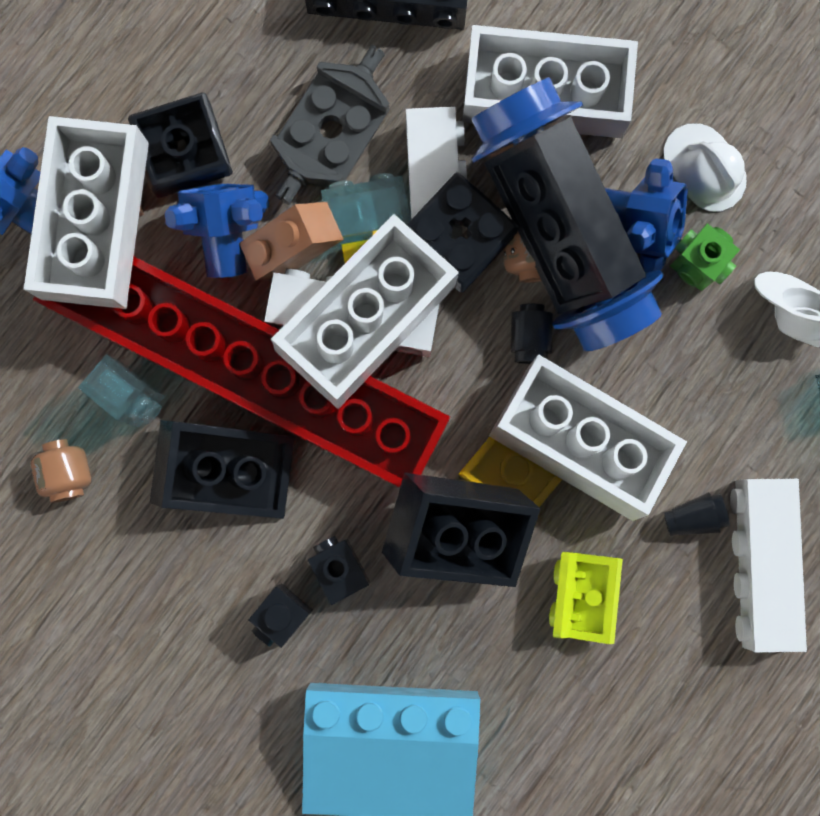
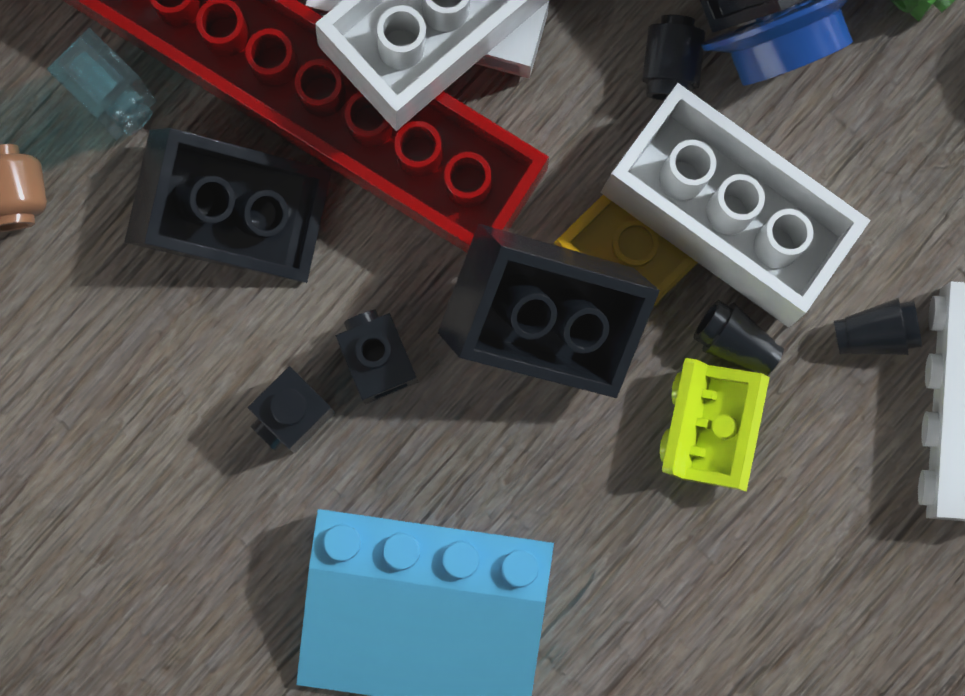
camera: 10 degrees right, 0 degrees up
(596, 532) = (737, 339): none -> black cone

